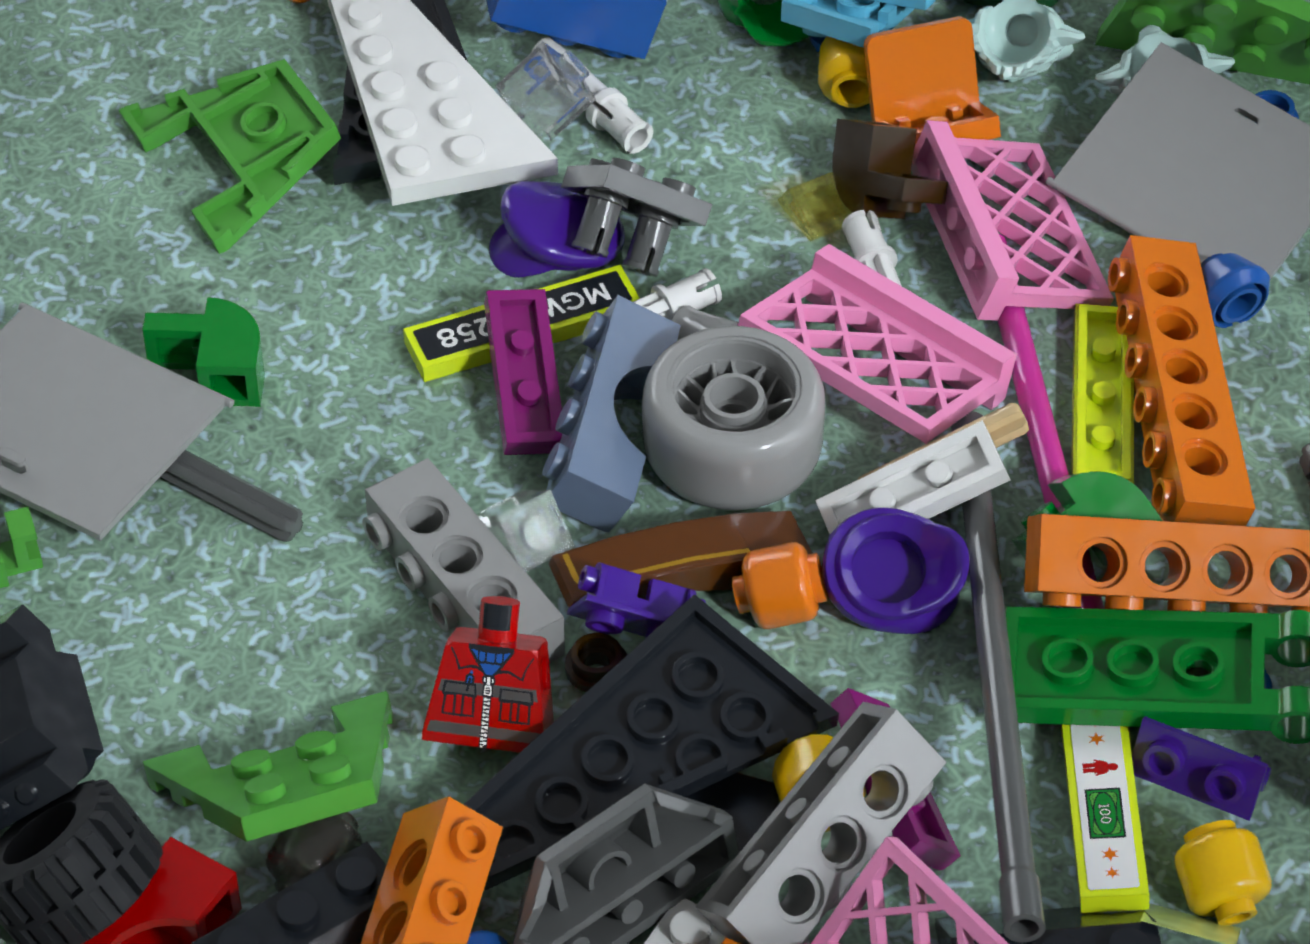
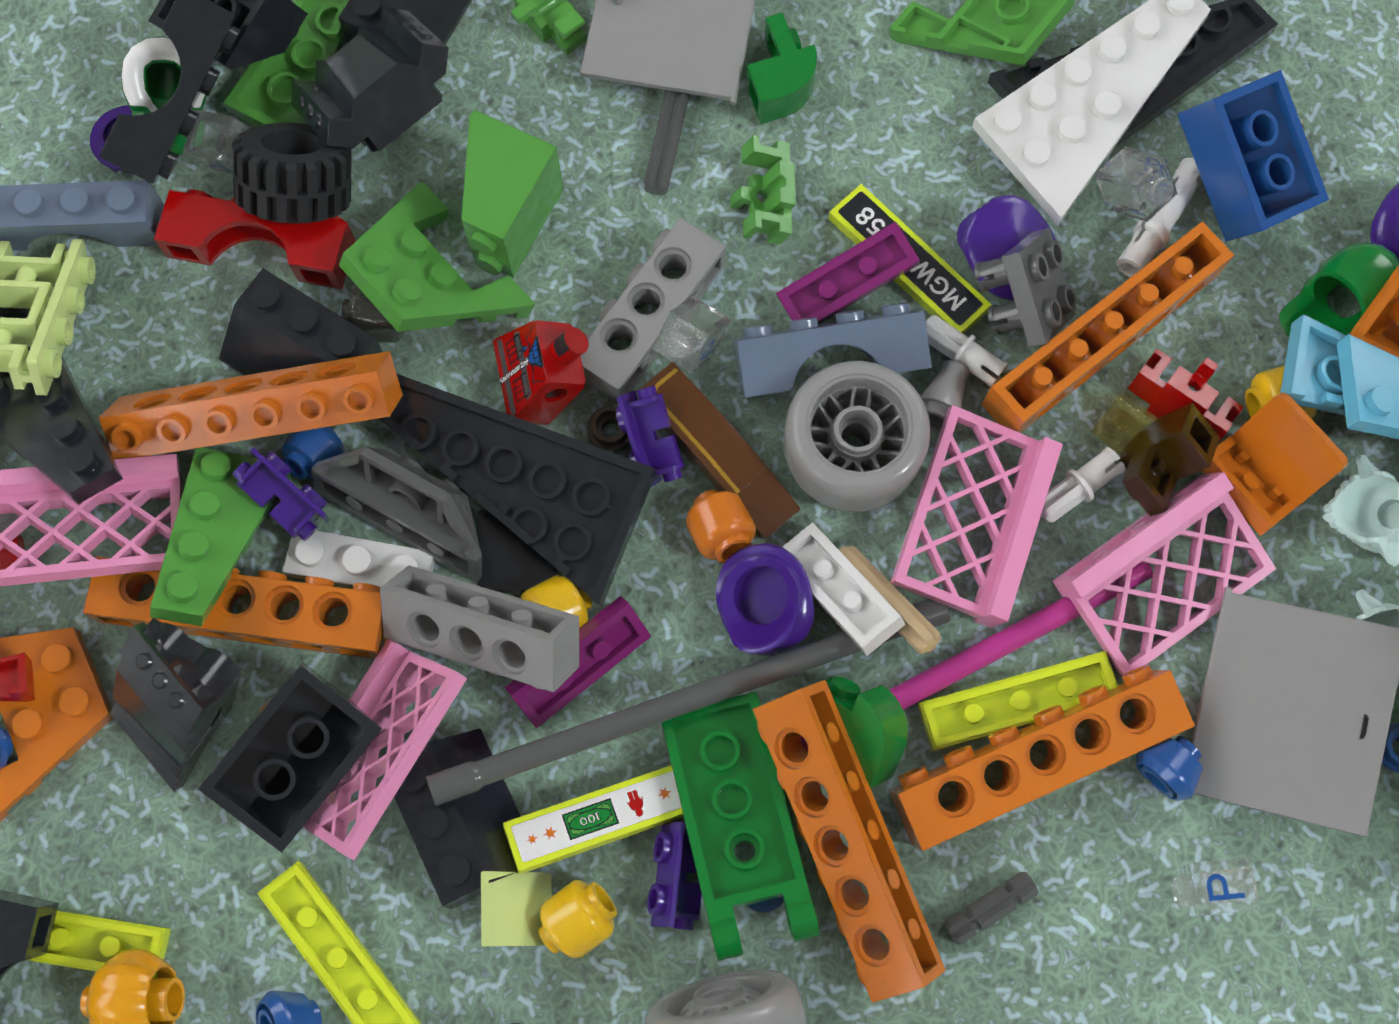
camera: 70 degrees right, 25 degrees up
(227, 654) = (507, 192): none -> bright green slope
(370, 410) = (776, 187): none -> bright green piece
(704, 152) = (1107, 329): none -> orange brick
(811, 143) = (1176, 392): none -> red piece

